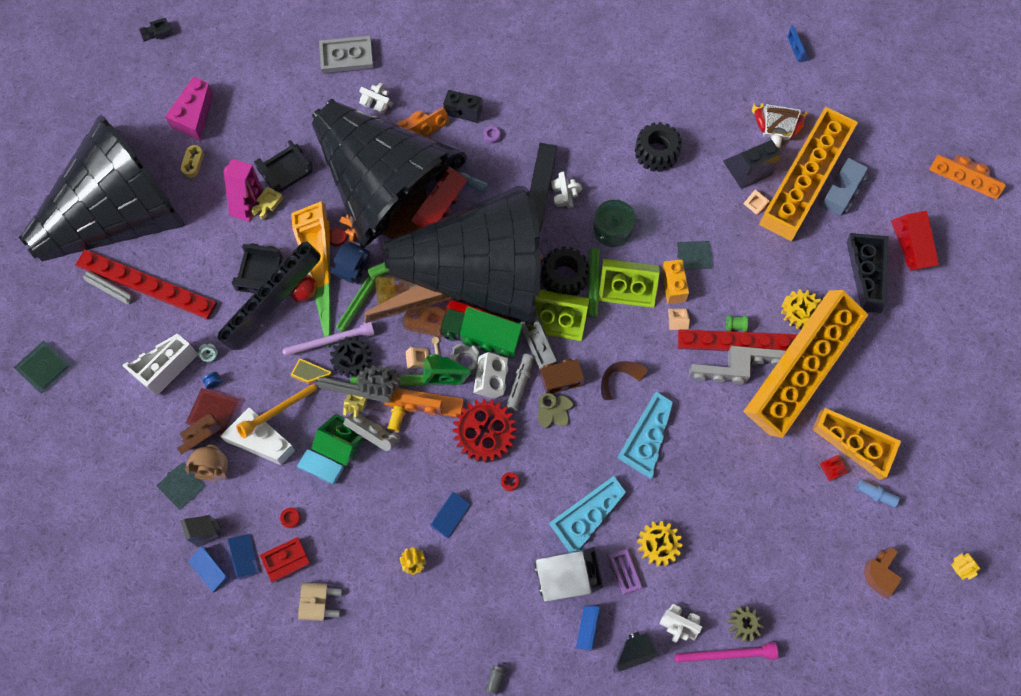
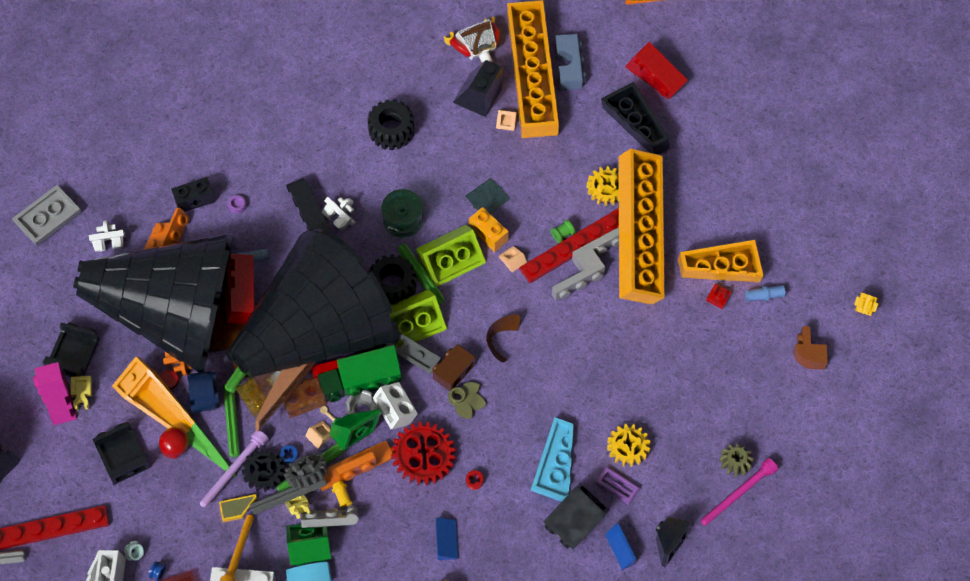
camera: 35 degrees left, 5 degrees down
(269, 296) = (160, 413): black beam -> none
(385, 360) = (289, 448): none -> blue bush
(523, 375) = (420, 388): light grey pin -> none
(645, 439) = (557, 370): medium azure wing -> none
(681, 626) = (690, 494): white hips -> none

